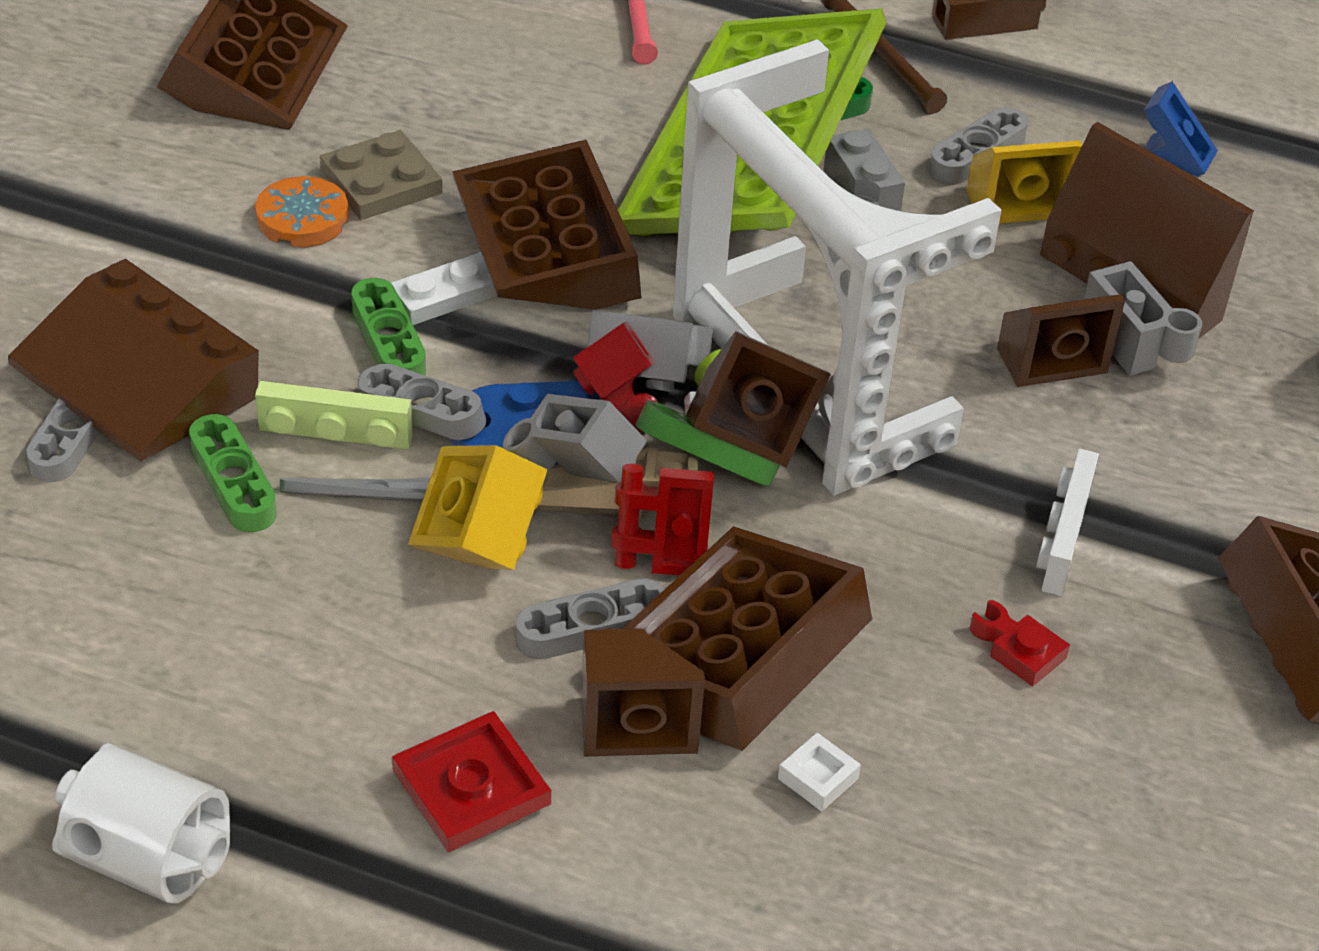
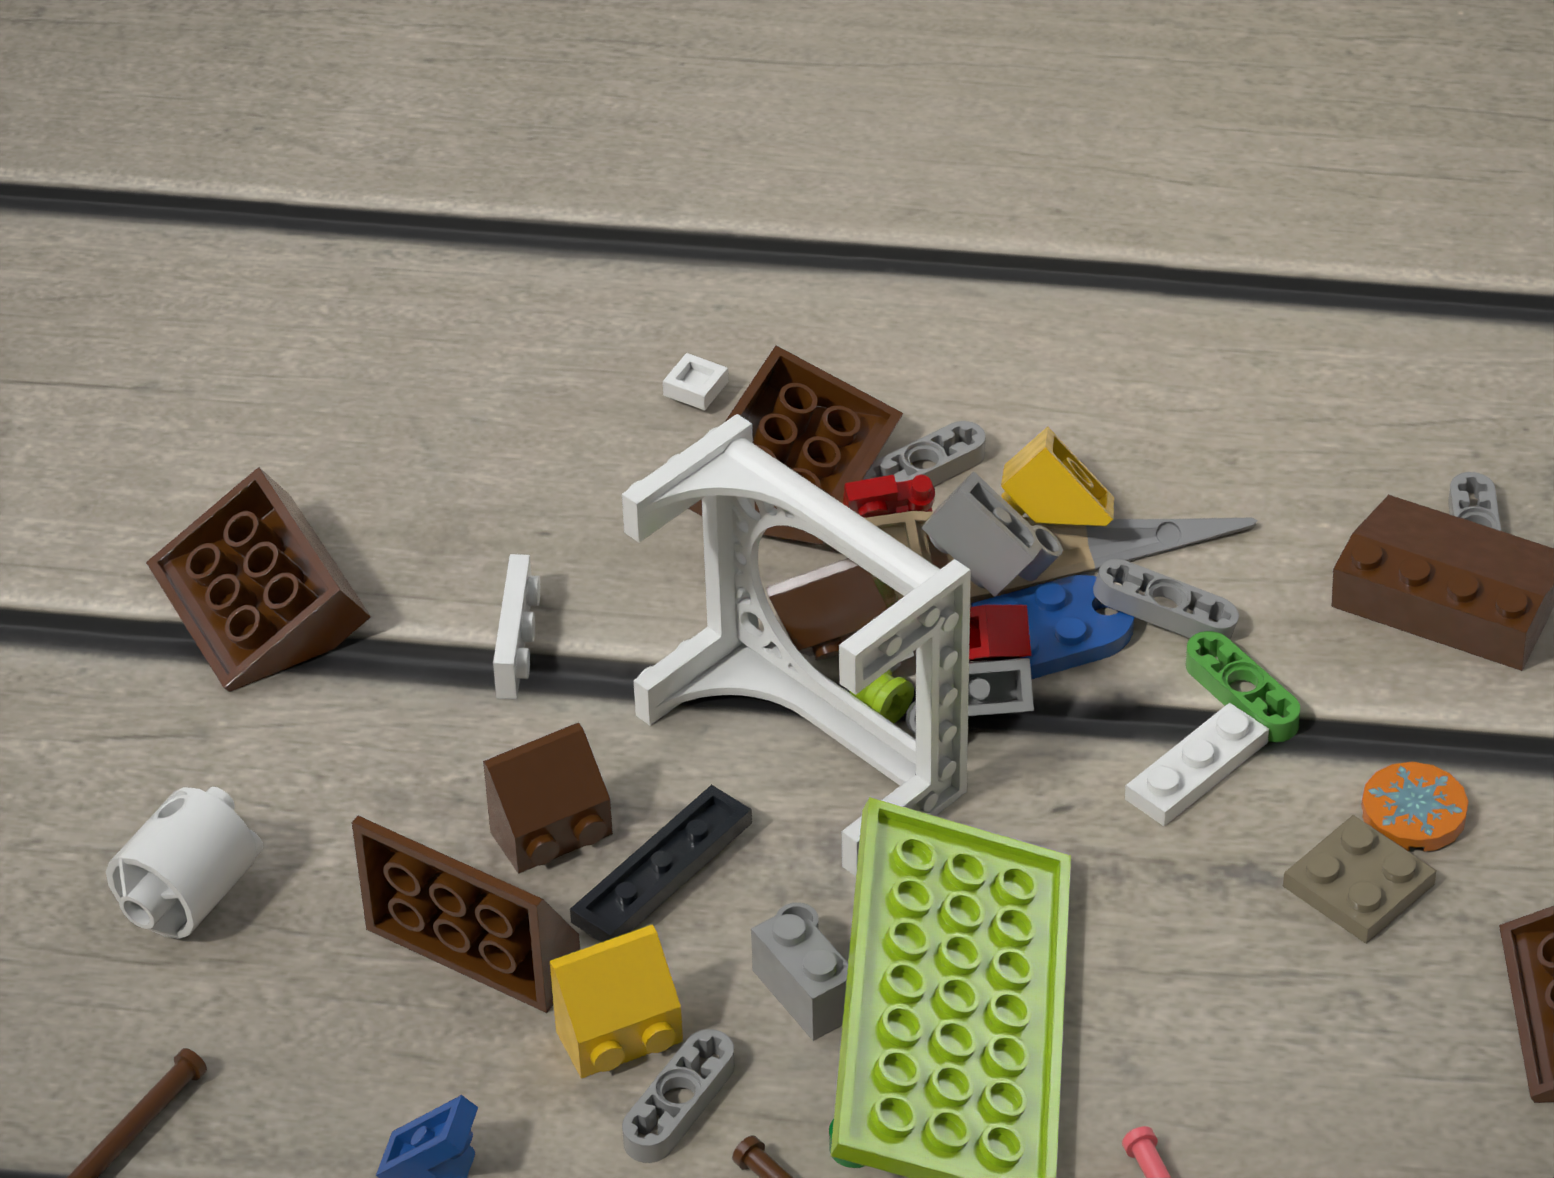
camera: 170 degrees right, 0 degrees up
(142, 823) = (1183, 211): white cylinder -> none
(231, 490) = (1270, 487): bright green beam -> none
(334, 415) = (1245, 569): yellowish green plate -> none
(471, 781) = (966, 319): red plate -> none
(550, 229) = (1127, 801): reddish brown slope -> none
(638, 696) = (862, 351): reddish brown slope -> none
(968, 289) = (661, 865): none -> black plate
(1020, 646) = (543, 524): red plate -> none
(1147, 320) = (463, 828): light grey hinge -> none

